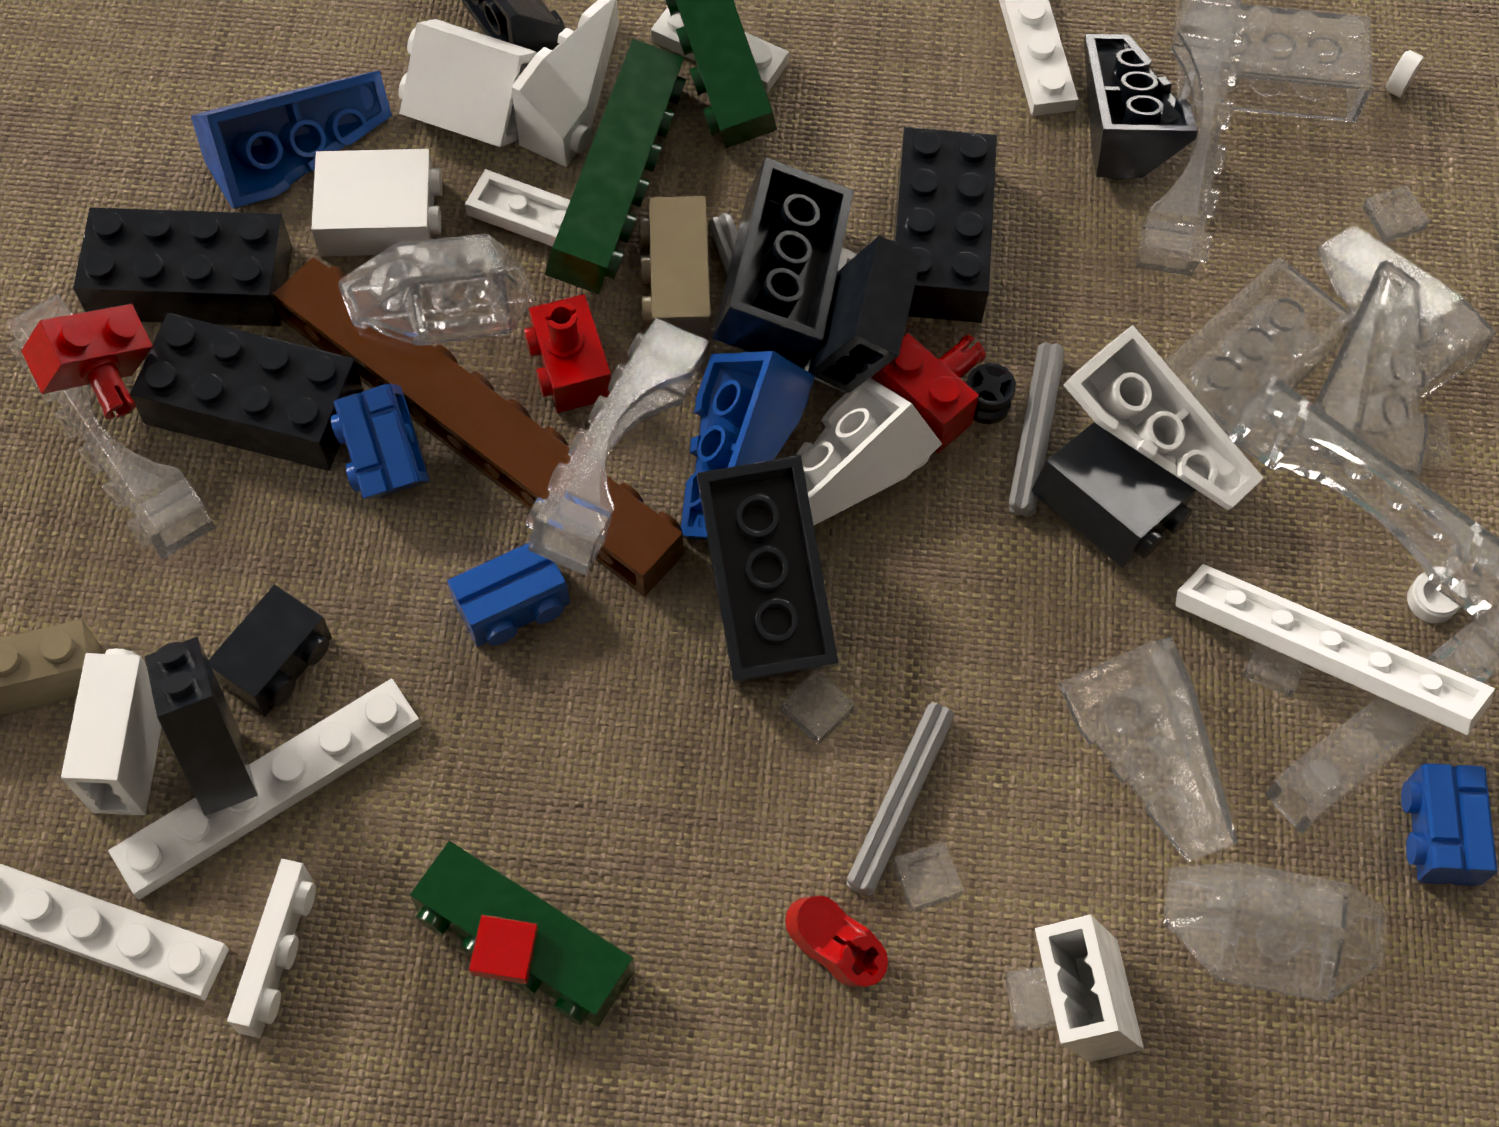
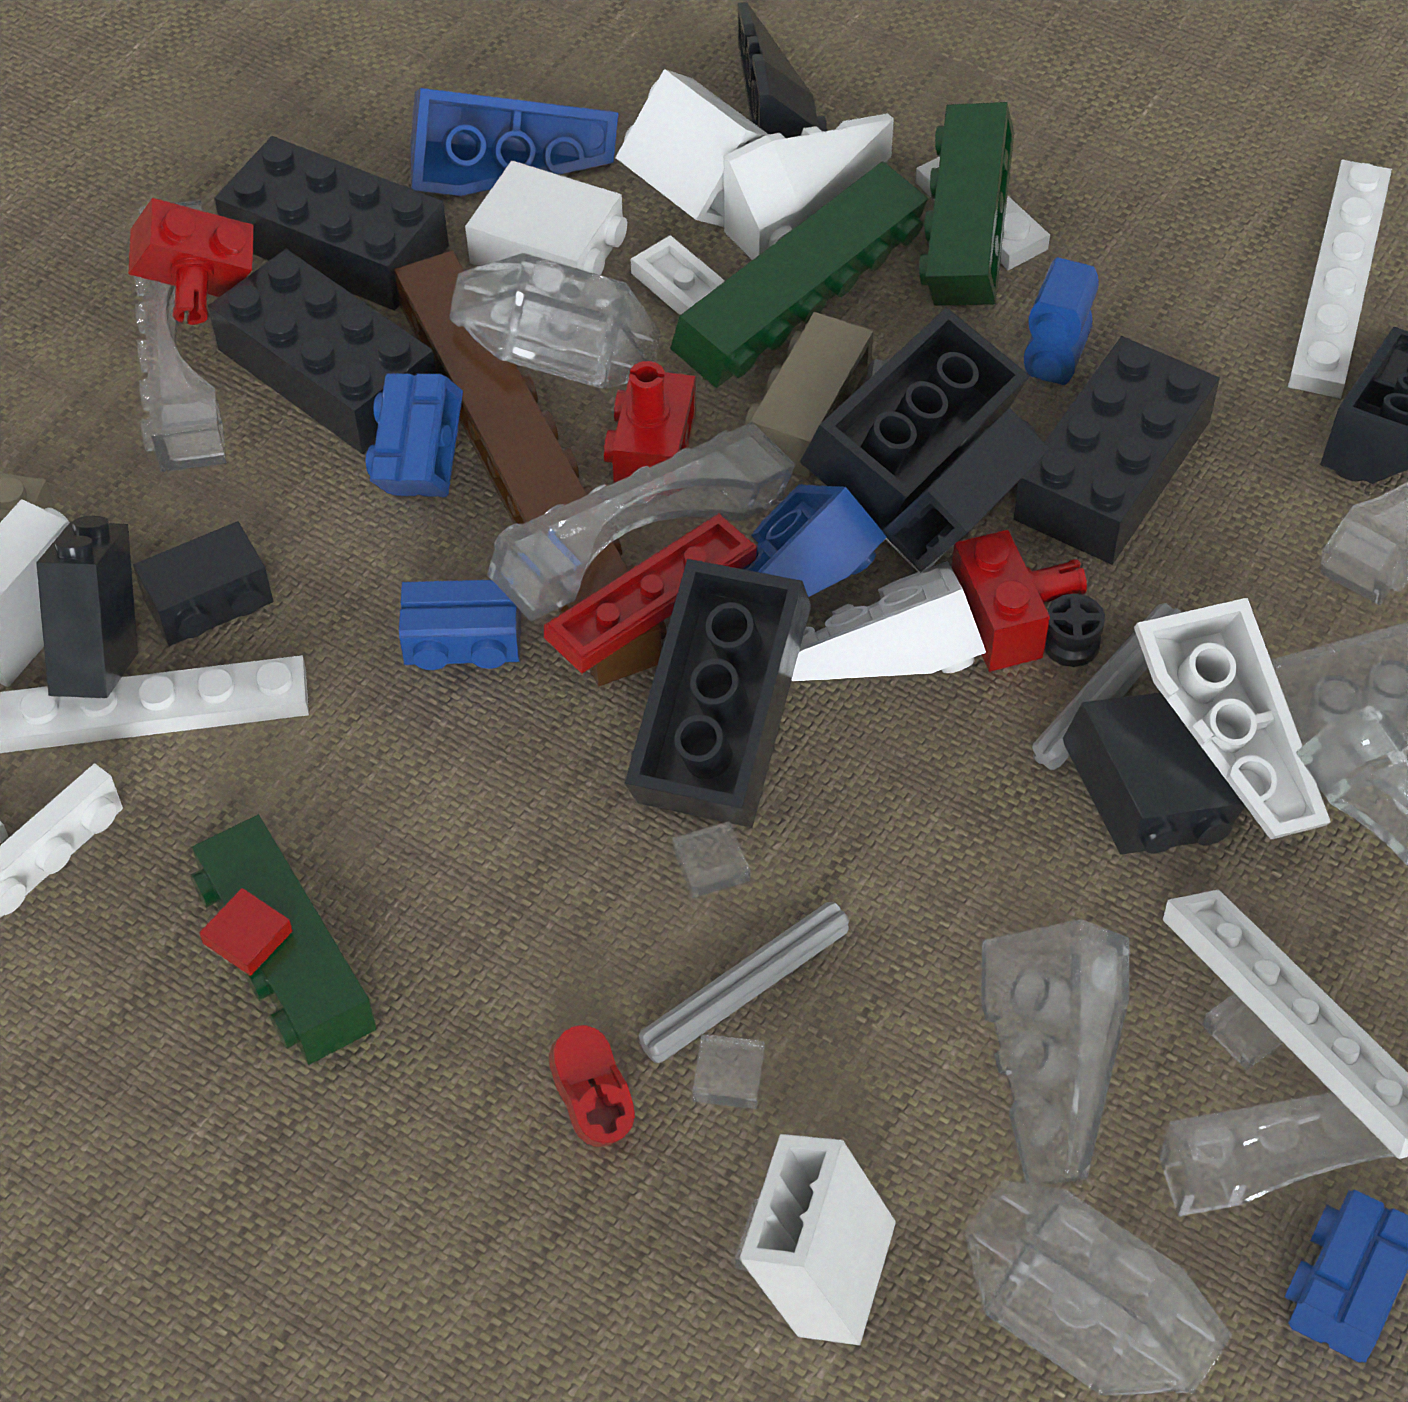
camera: 30 degrees right, 10 degrees down
(659, 506) = (642, 595): none -> red tile
(848, 130) = (1061, 321): none -> blue brick

